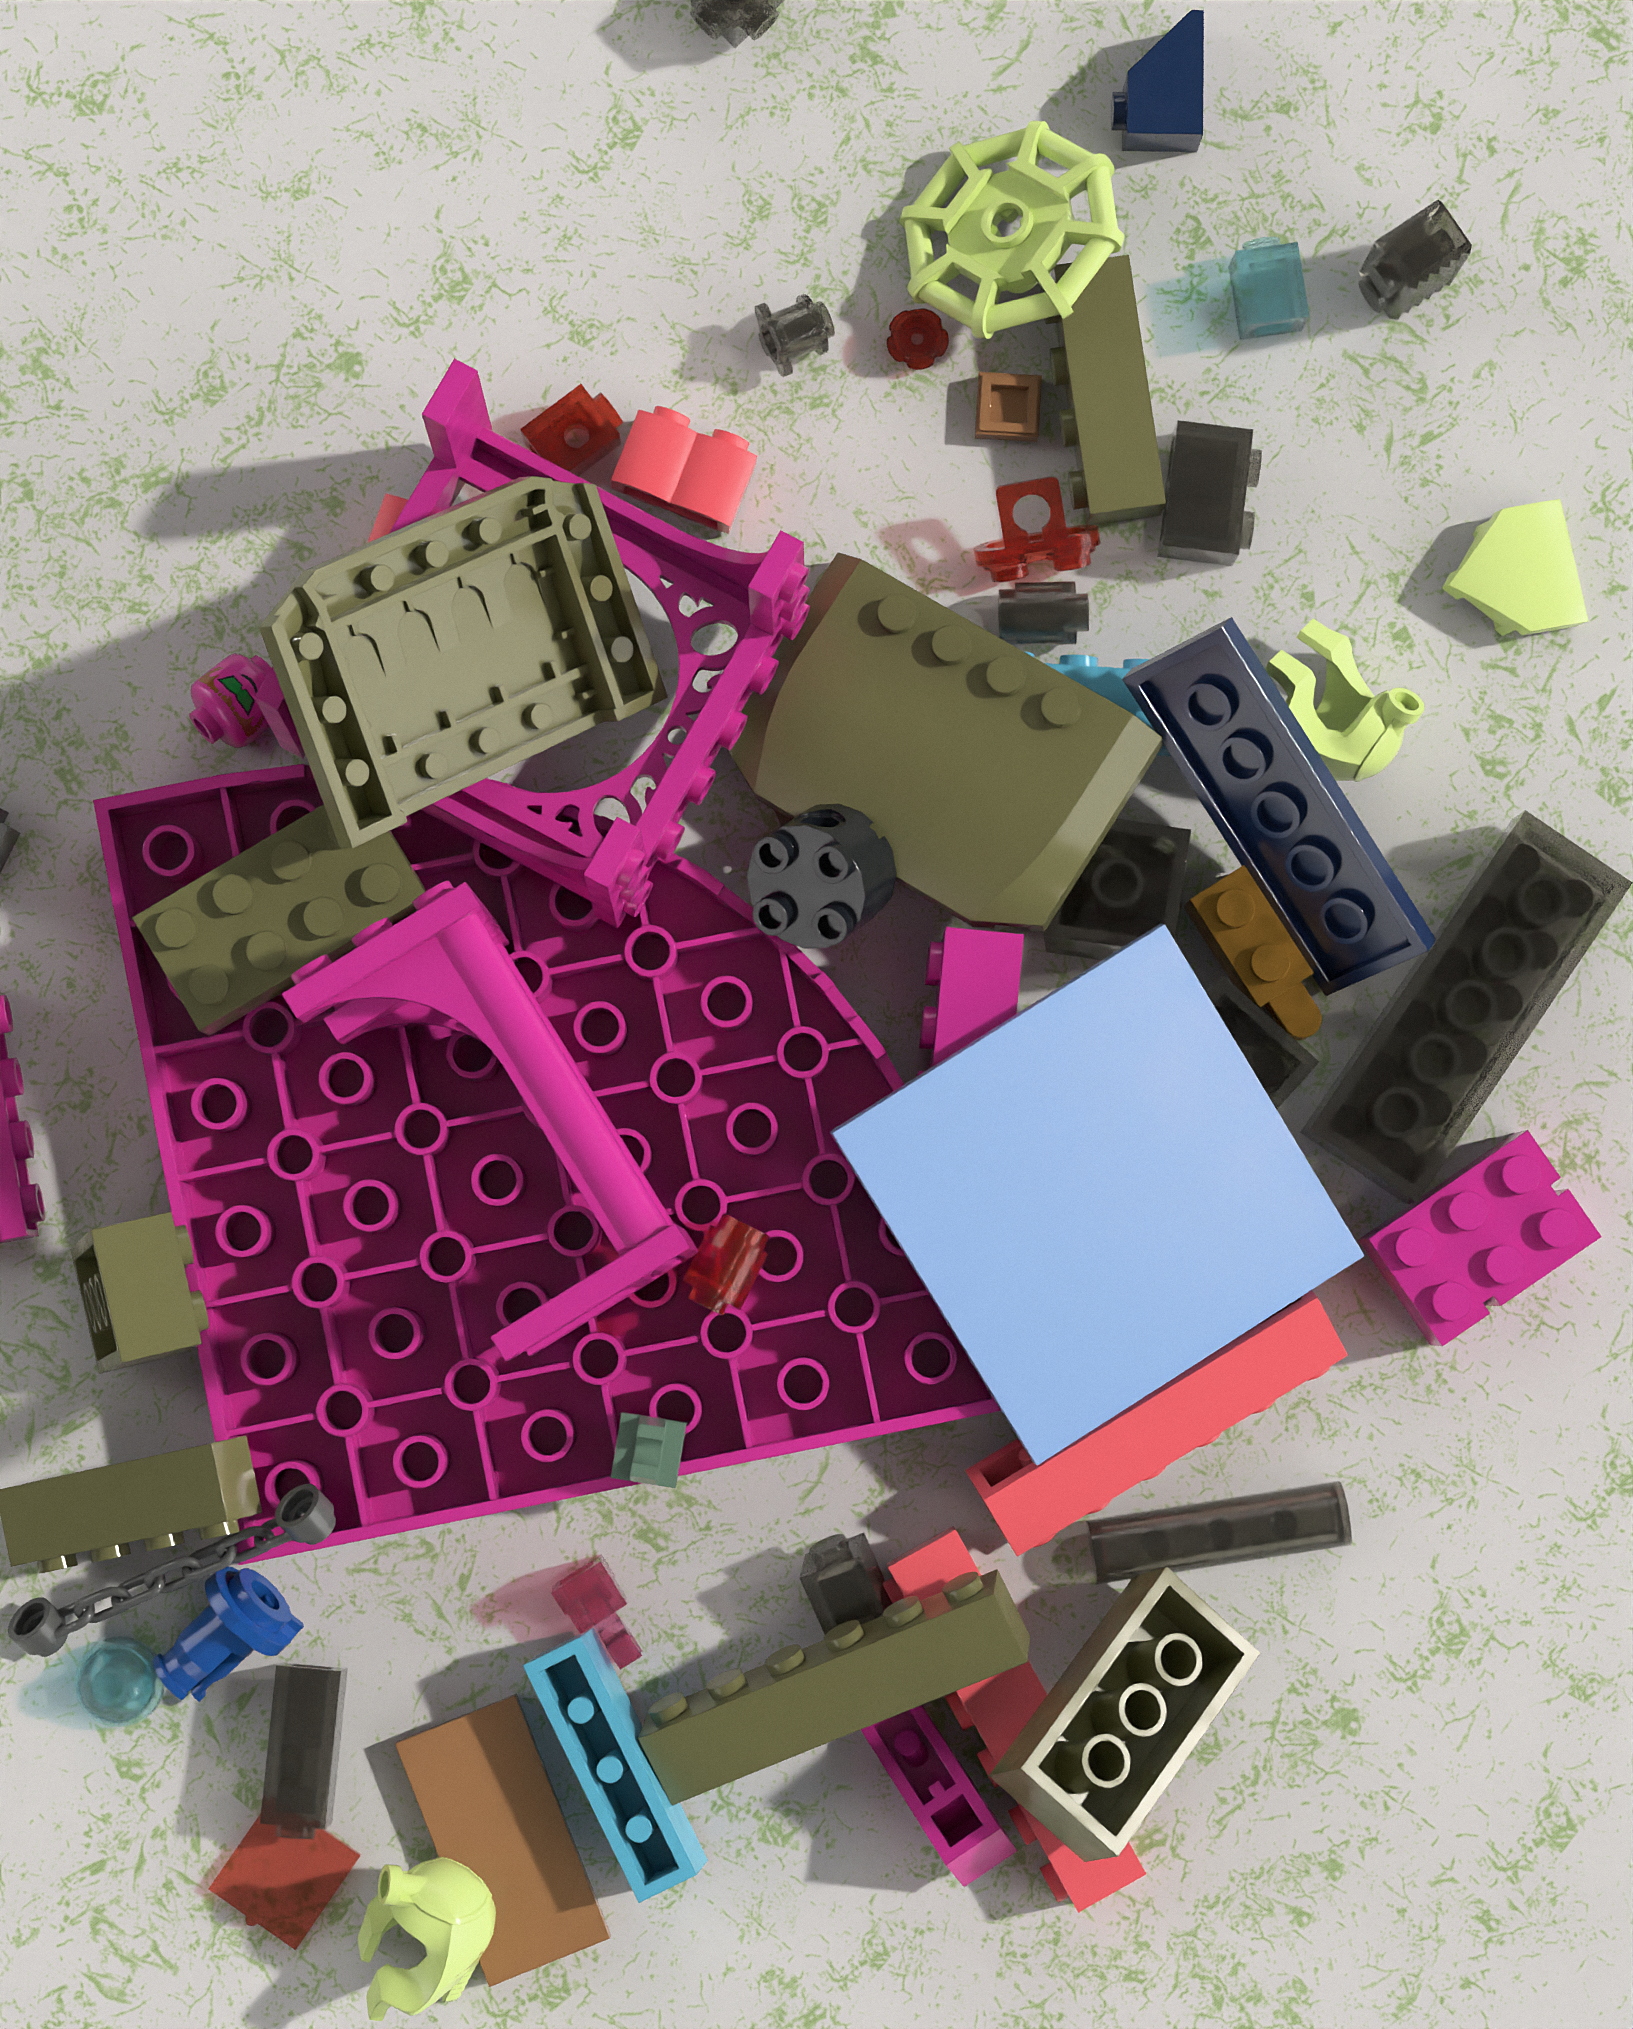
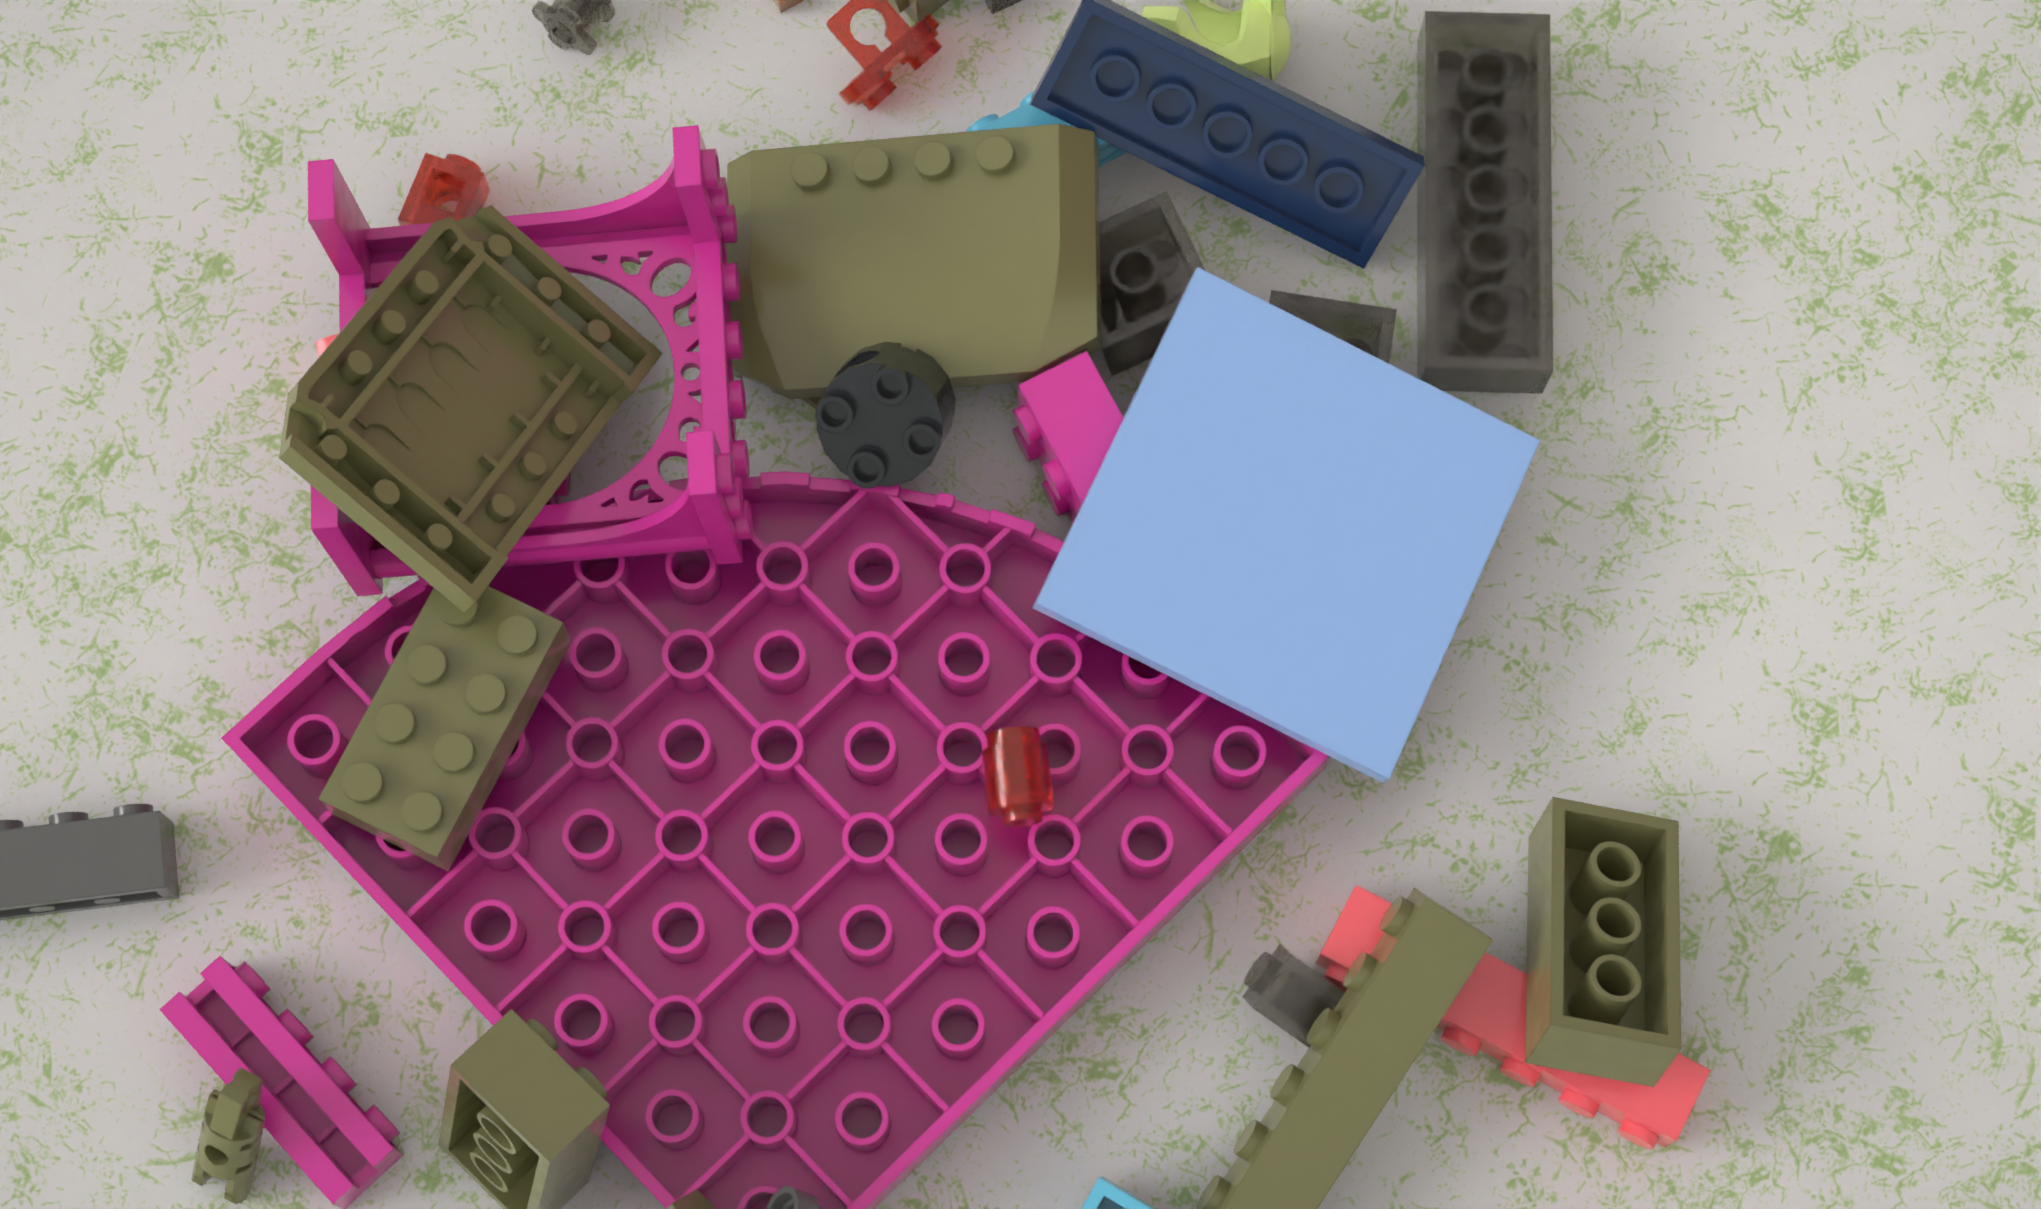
camera: 30 degrees left, 10 degrees down
(227, 701) = (294, 589): dark pink head -> none
(454, 973) = (637, 627): dark pink arch -> none
(592, 1599) = (1087, 1149): clear pink piece -> none
(648, 1450) = (1053, 977): sand green tile -> none
(684, 469) = (556, 170): coral brick -> none
(940, 1794) = (1490, 1120): dark pink slope -> none
(1042, 613) = (929, 105): clear smoke brick -> none
(1139, 1442) = (1403, 818): coral brick -> none
(1219, 1531) = (1575, 753): clear smoke brick -> none
(1256, 951) = (1271, 253): pearl gold brick -> none
(1479, 1238) = (1622, 378): dark pink piece -> none

